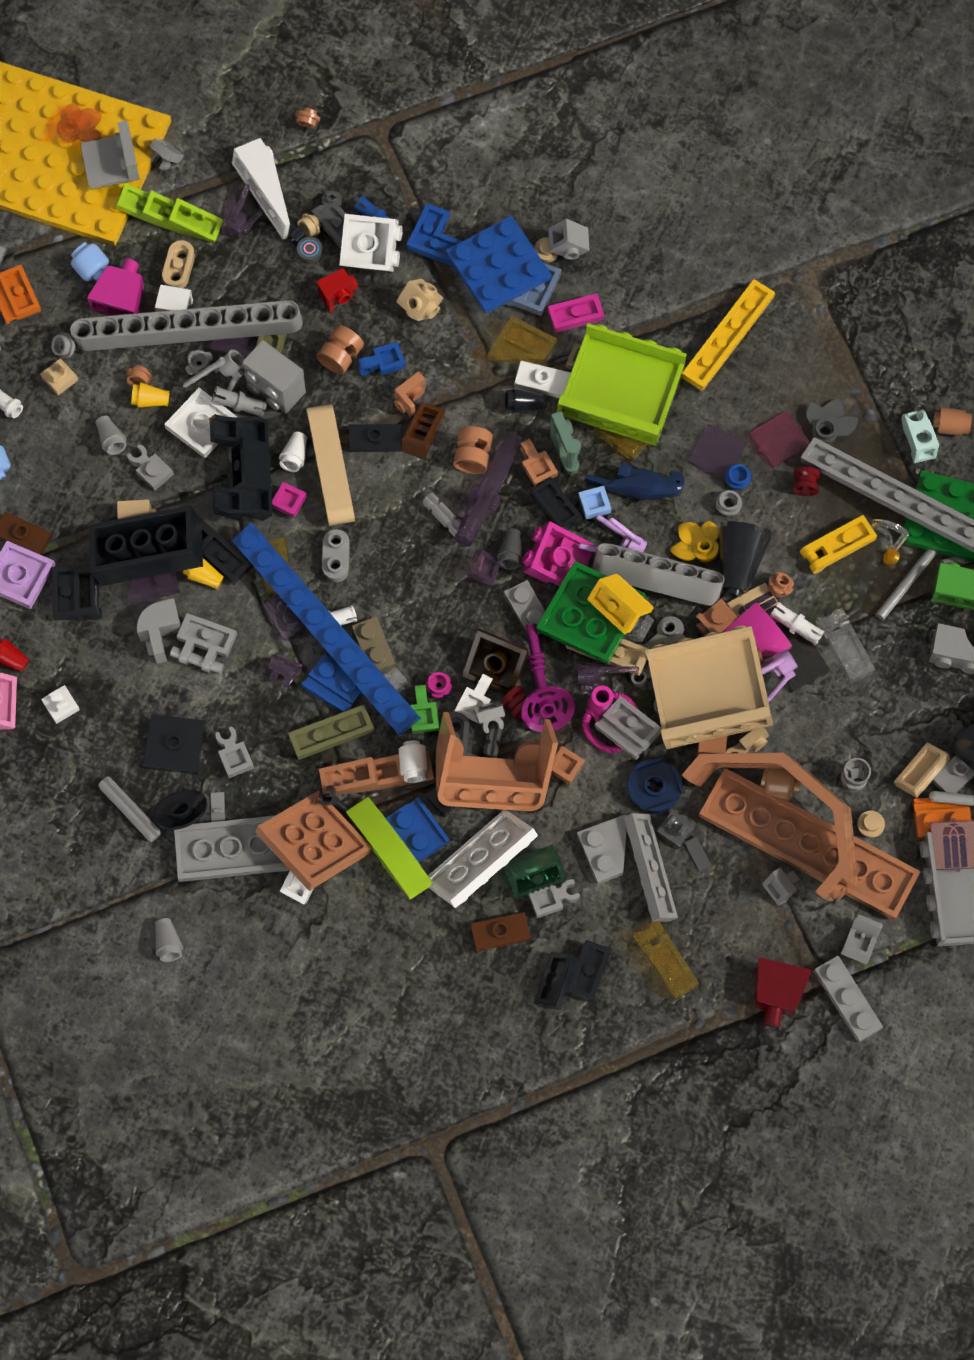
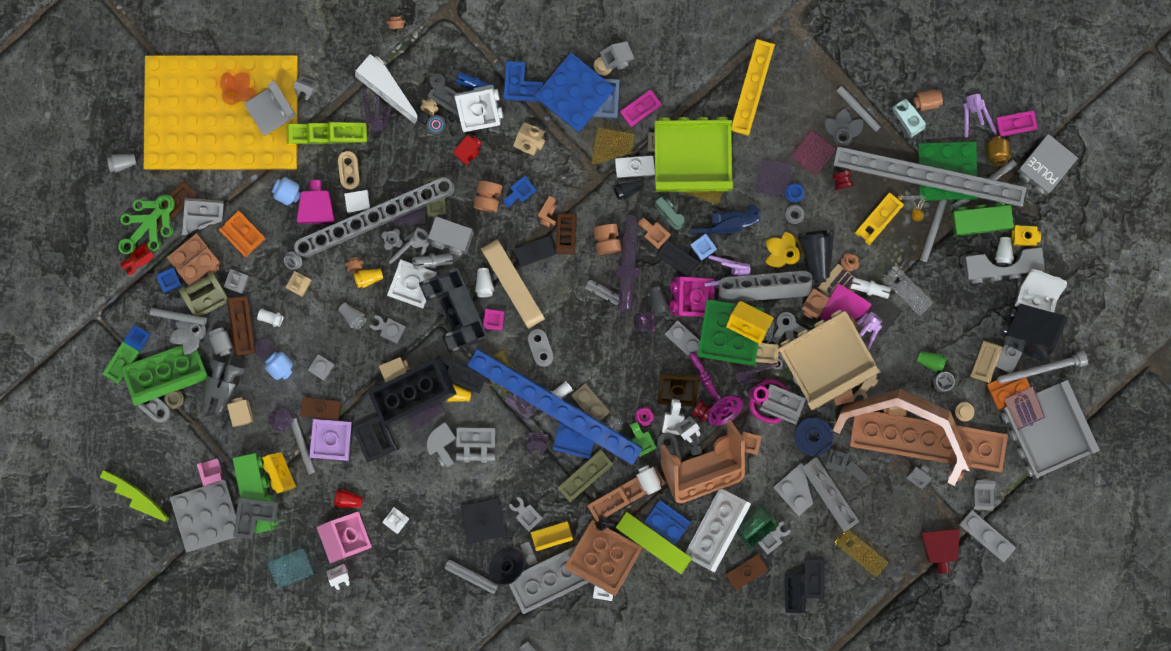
camera: 20 degrees left, 15 degrees up
(44, 485) = (321, 367): none -> light grey plate
(256, 794) = (551, 536): none -> yellow panel
(848, 743) = (932, 361): none -> bright green cone
(857, 405) = (858, 108): none -> light grey bar

